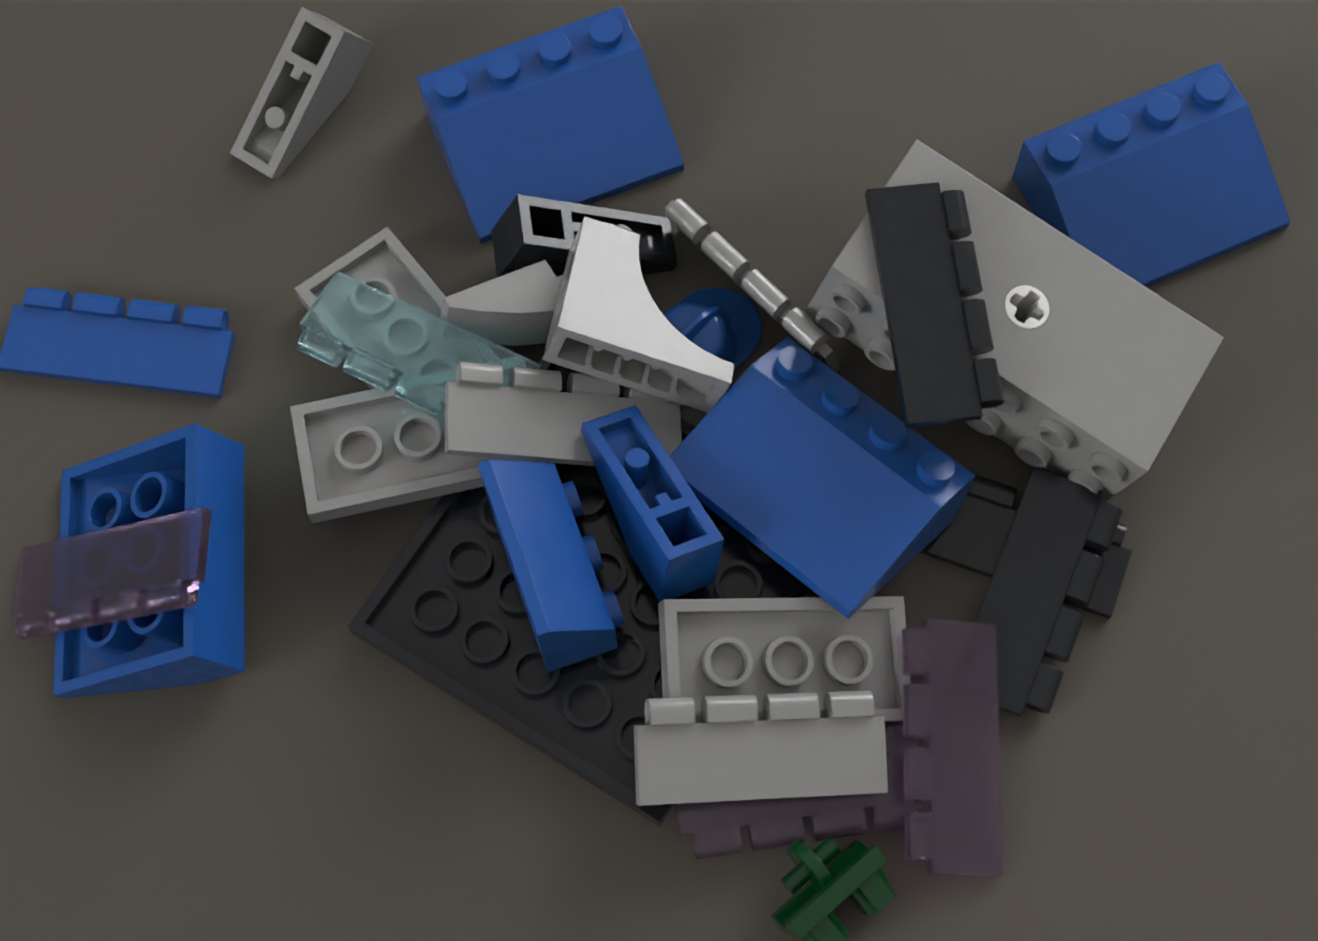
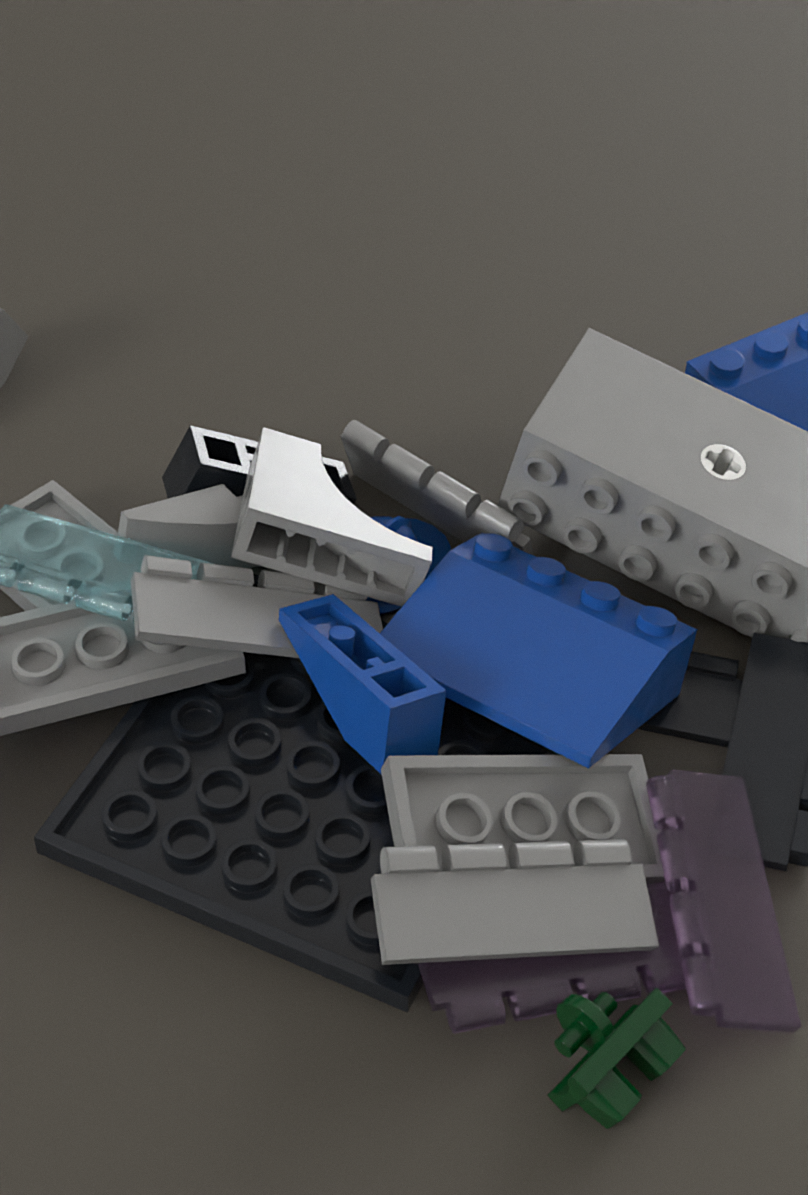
camera: 10 degrees left, 20 degrees down
(551, 119) = (211, 368): blue slope -> none
(551, 560) = (257, 743): blue slope -> none
(922, 295) = (632, 459): black windscreen -> none

